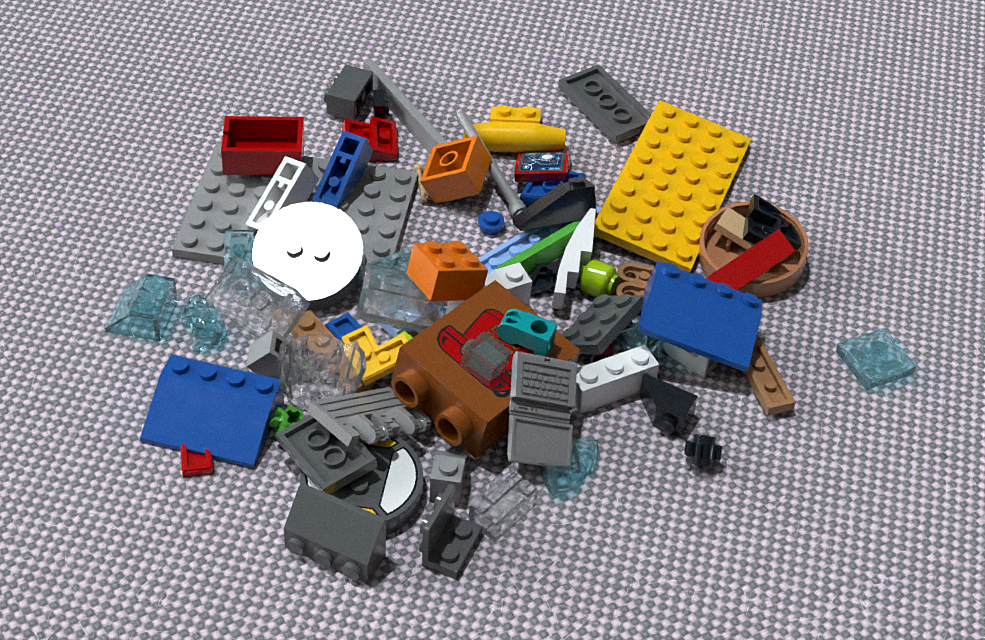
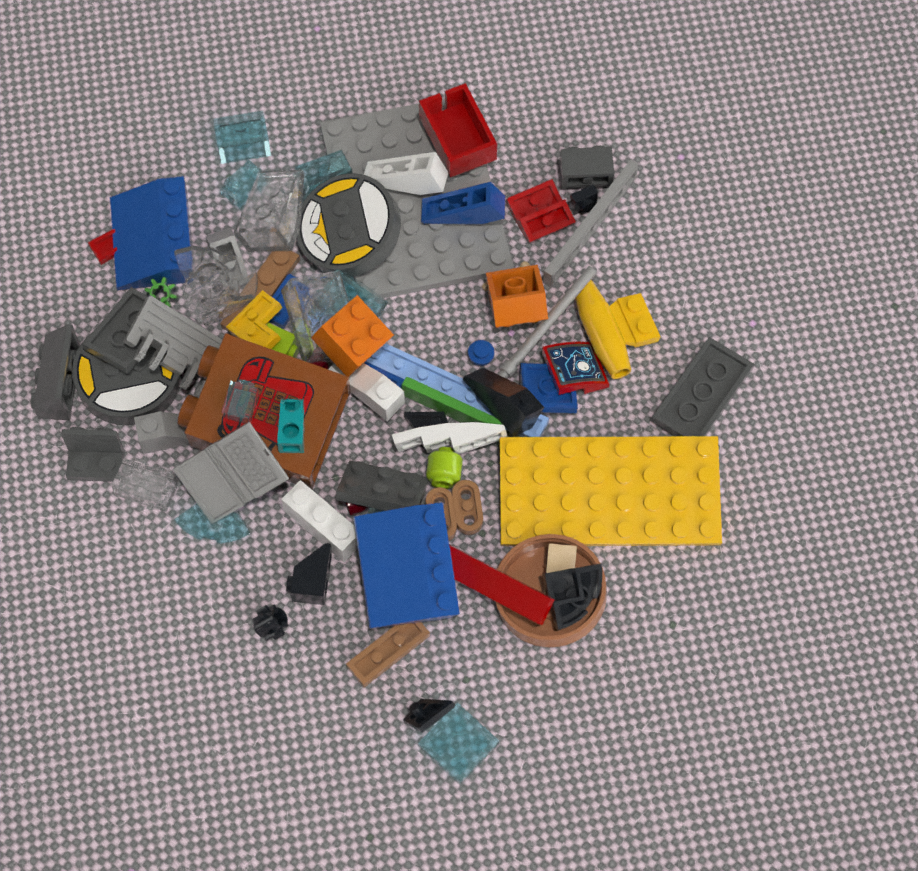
camera: 70 degrees right, 20 degrees up
(840, 368) = (427, 712): none -> black piece

